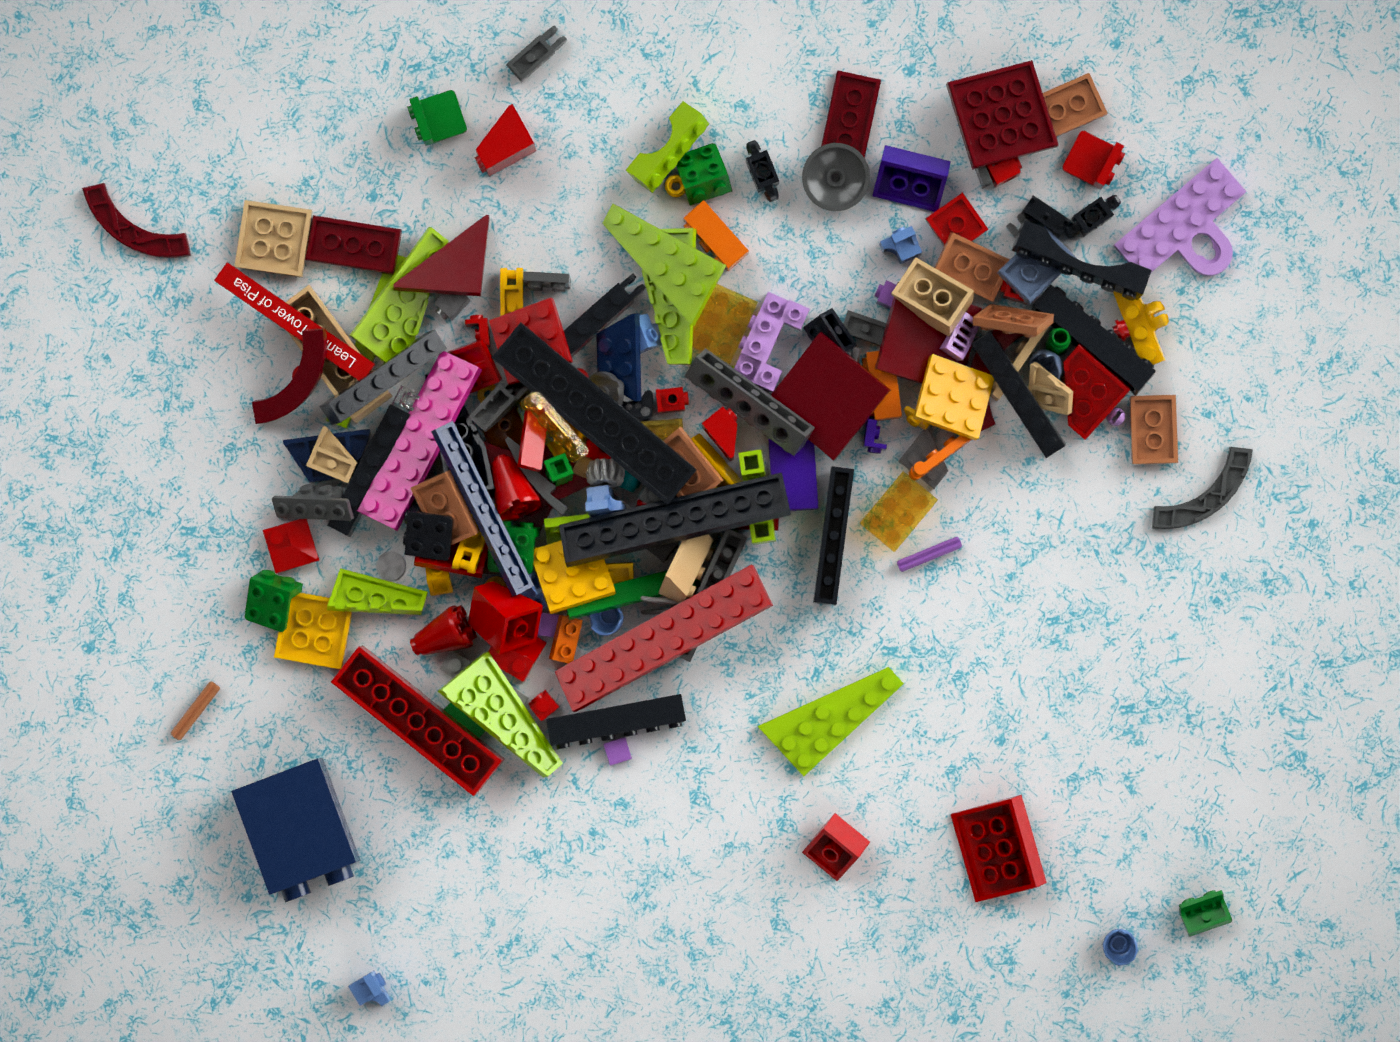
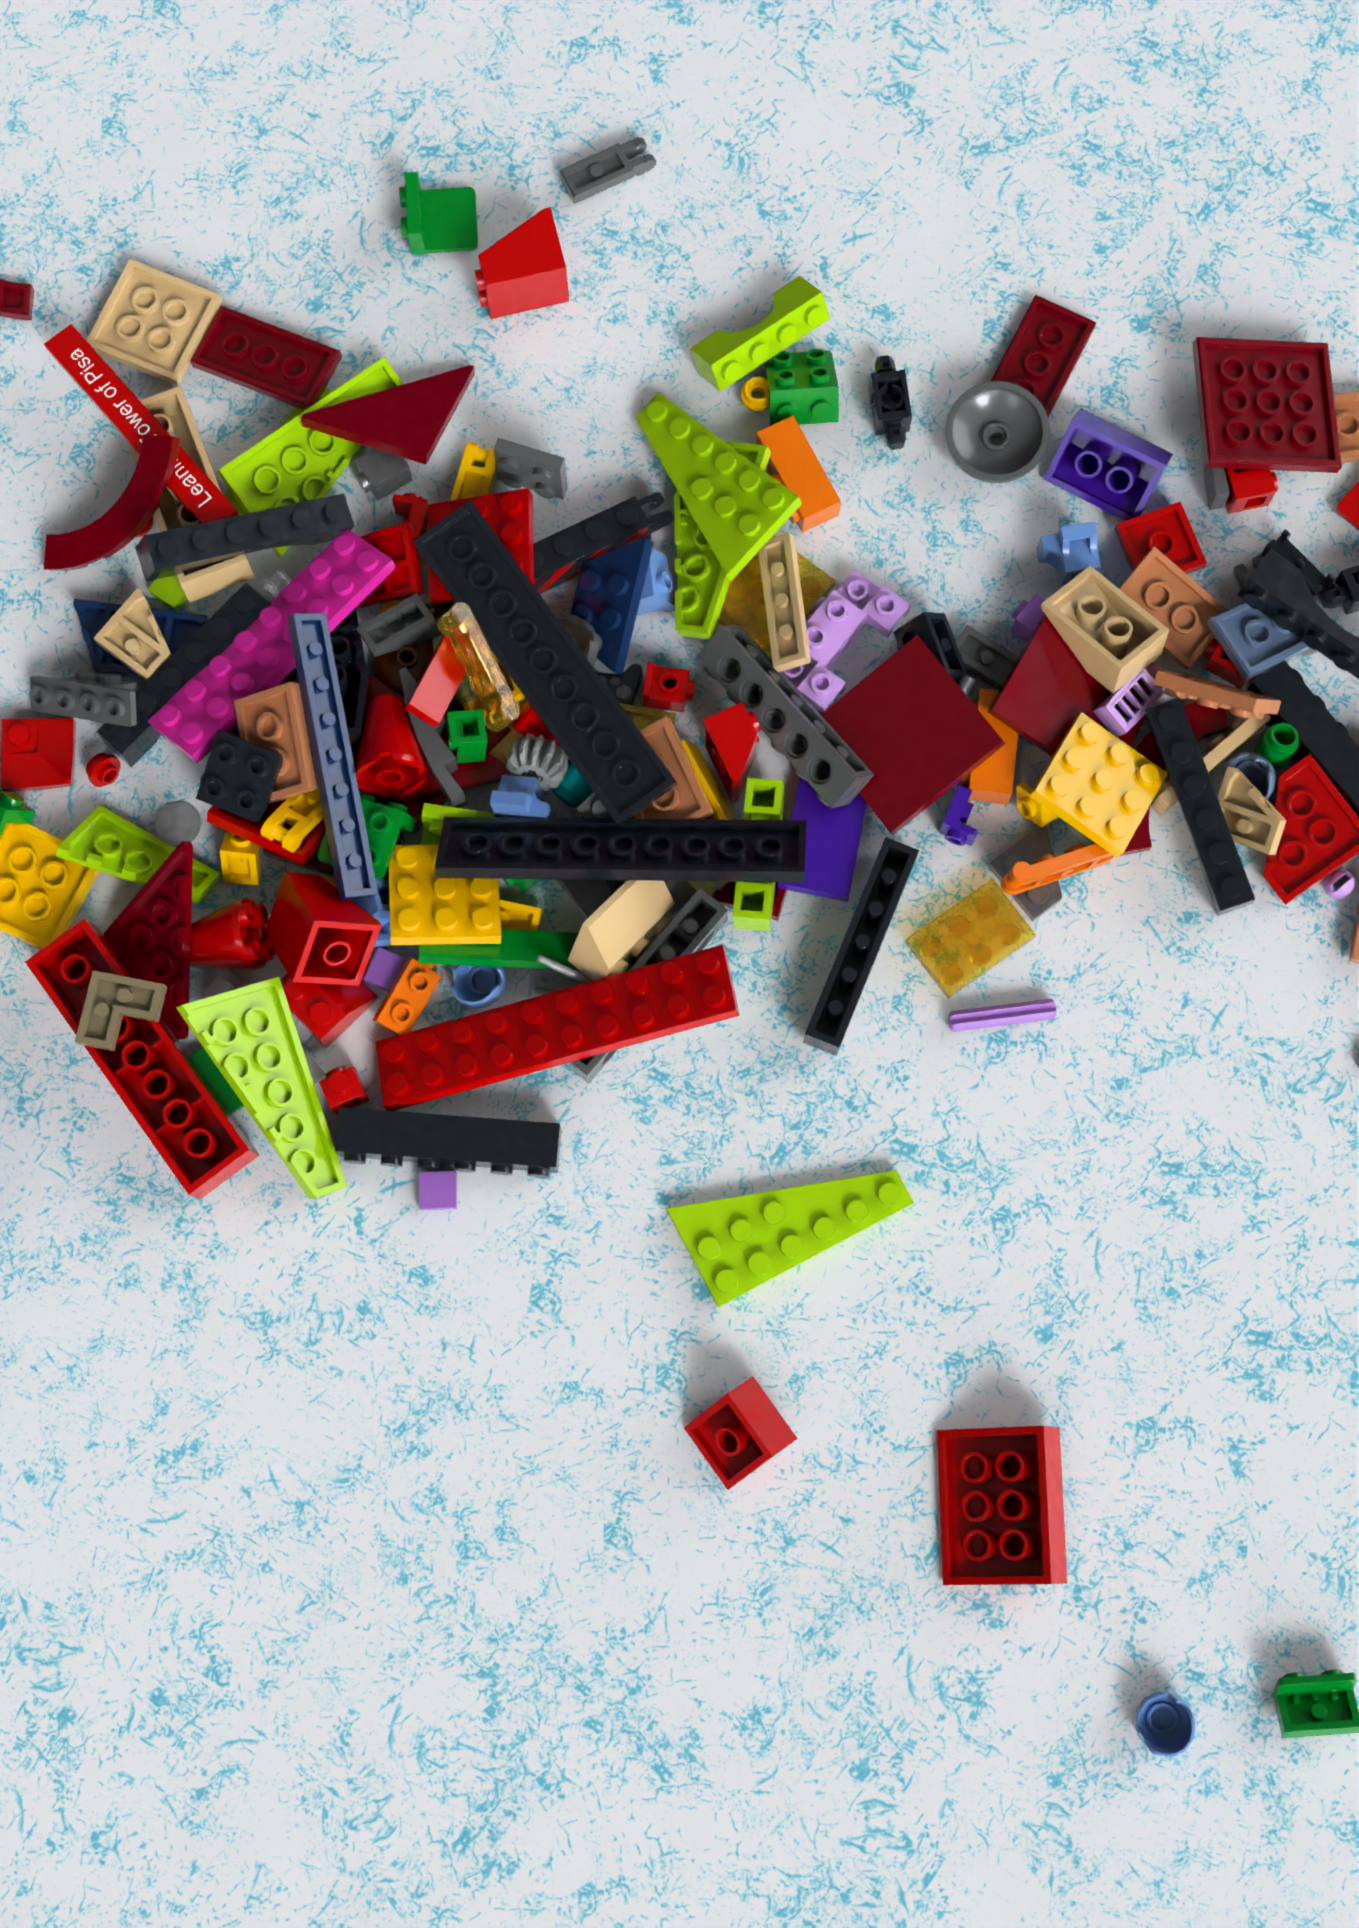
camera: 15 degrees right, 10 degrees down
(335, 545) = (103, 769): none -> red plate
(392, 693) = (109, 1000): none -> dark tan plate
(404, 645) = (155, 934): none -> dark red tile
(731, 330) = (784, 603): none -> tan plate

